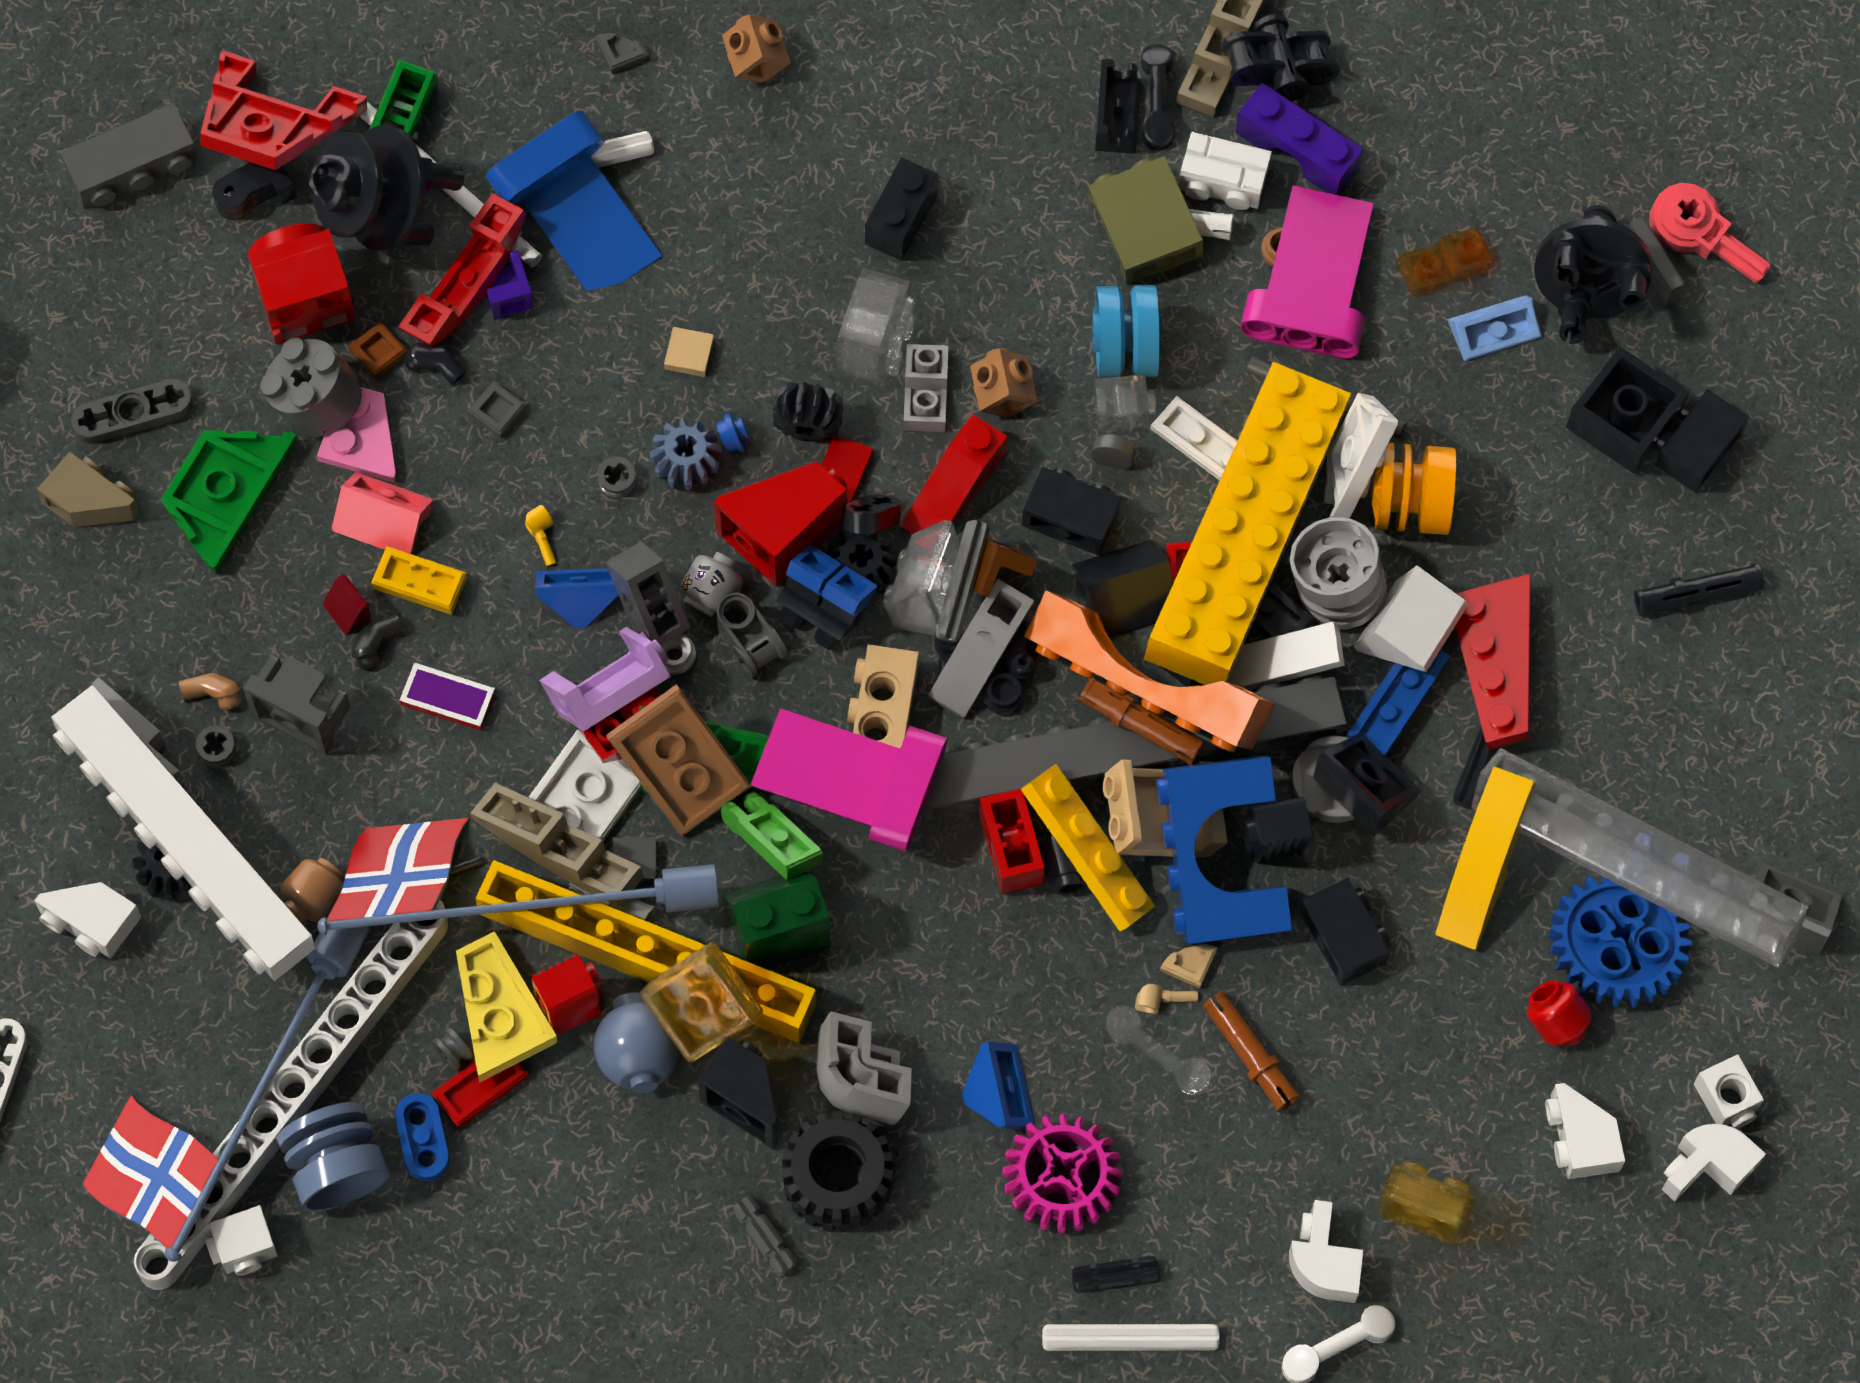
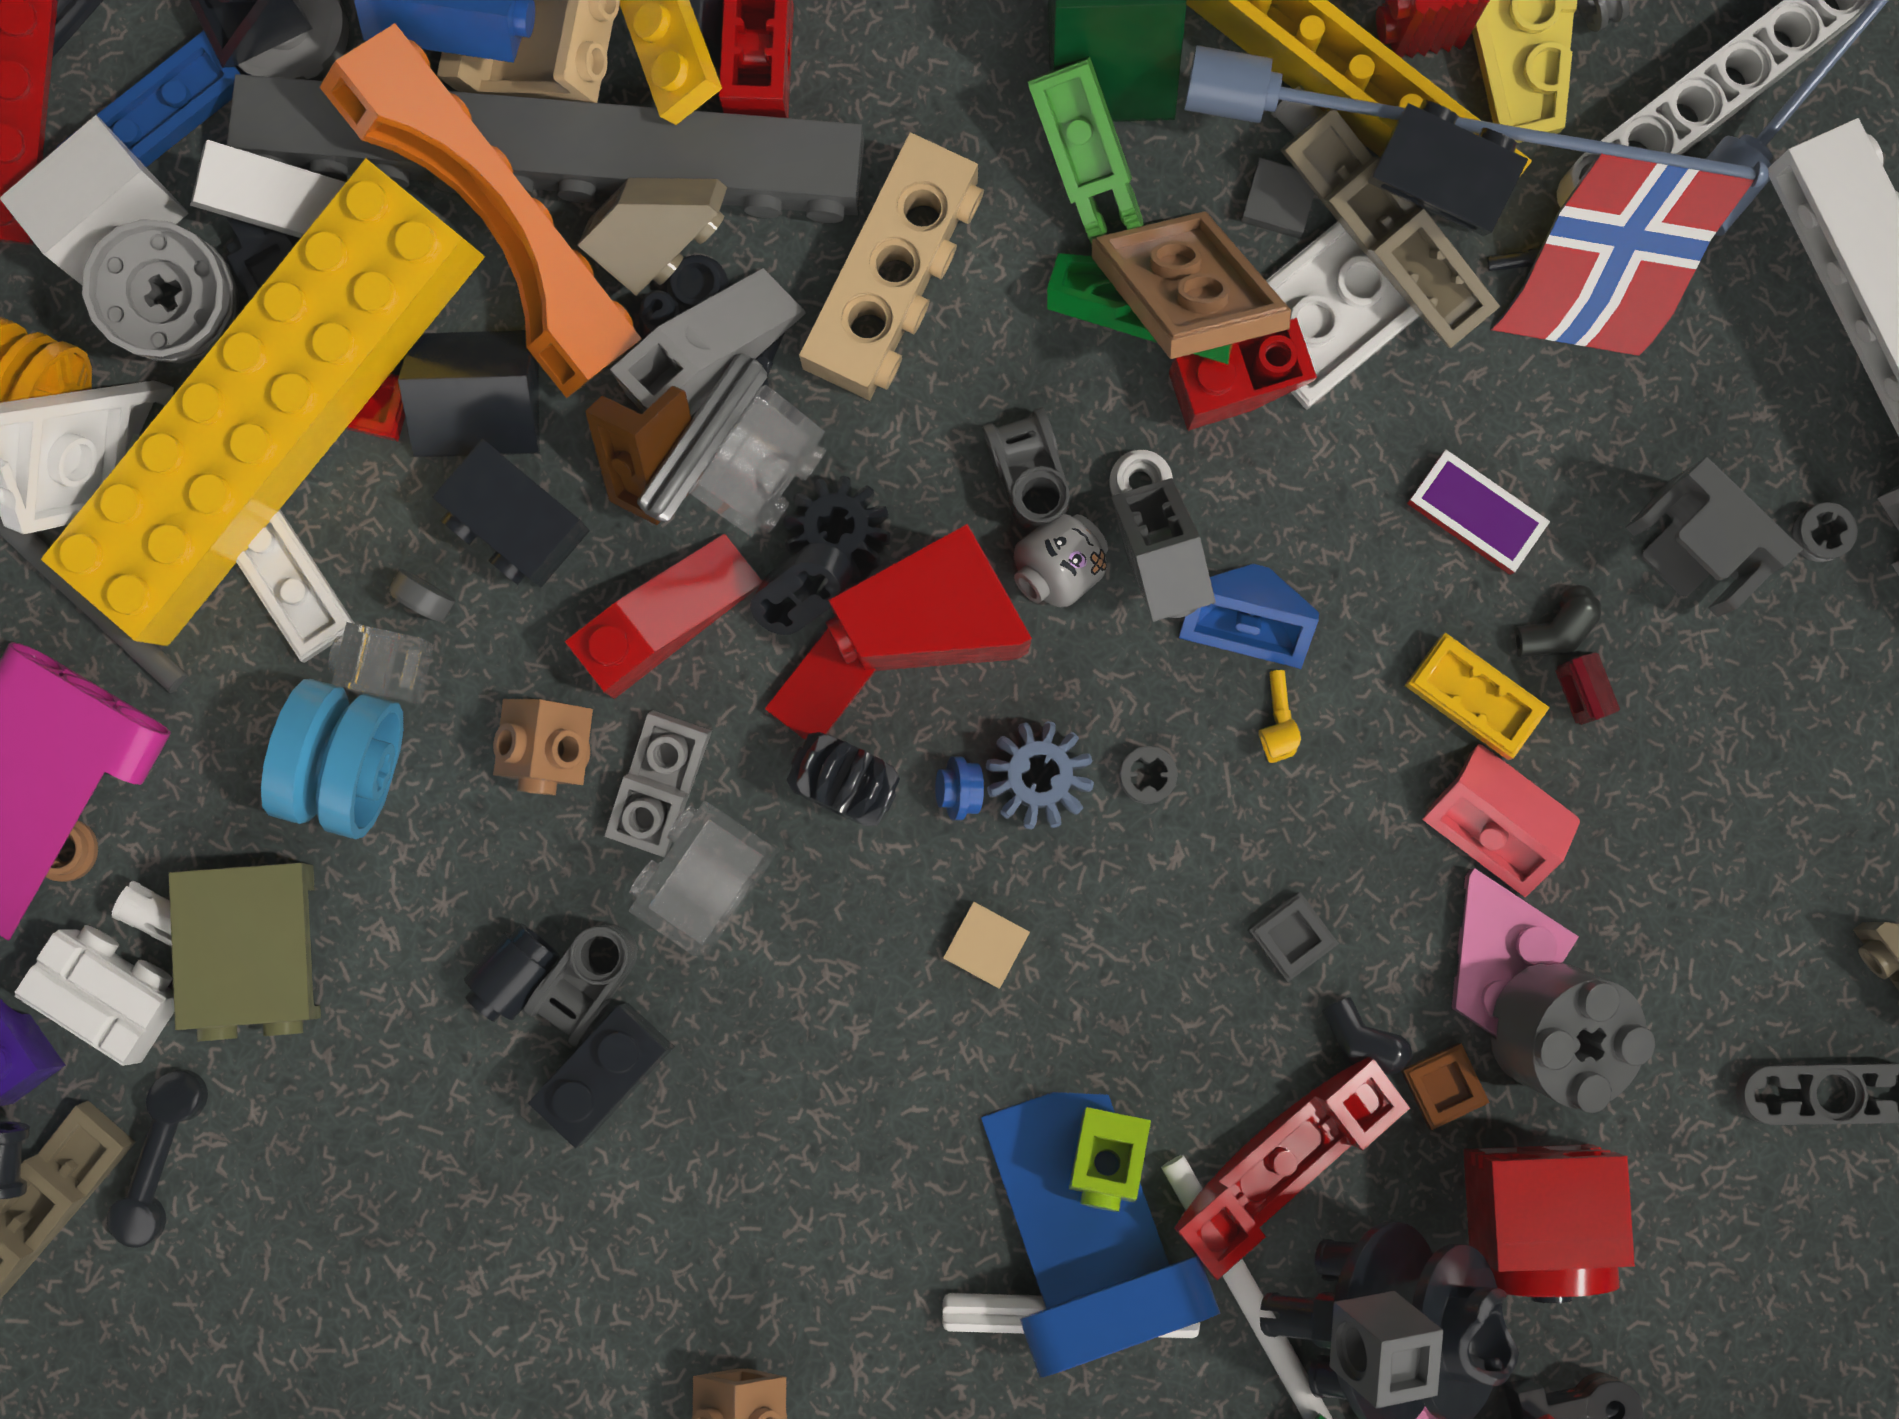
camera: 160 degrees left, 15 degrees up
(214, 685) = (1805, 621): medium nougat arm -> none
(223, 487) = (1727, 926): green wing -> none
(312, 889) = (1743, 269): medium nougat head -> none
(394, 148) = (1386, 1349): none -> dark grey brick
(510, 290) = (1226, 1123): dark purple panel -> none
(531, 859) = (1448, 167): none -> black brick
(577, 262) = (1123, 1137): none -> lime brick
(612, 686) = (1257, 434): lavender panel -> none
(824, 596) = (909, 476): hips -> none
(852, 774) = (945, 193): dark pink piece -> none
(933, 256) = (577, 991): none -> dark grey piece
(978, 251) = (509, 973): none -> black brick
(1040, 705) = (649, 224): none -> dark tan slope
(1117, 109) = (226, 1152): black hinge -> none
(1150, 726) = (537, 164): dark orange pin -> none

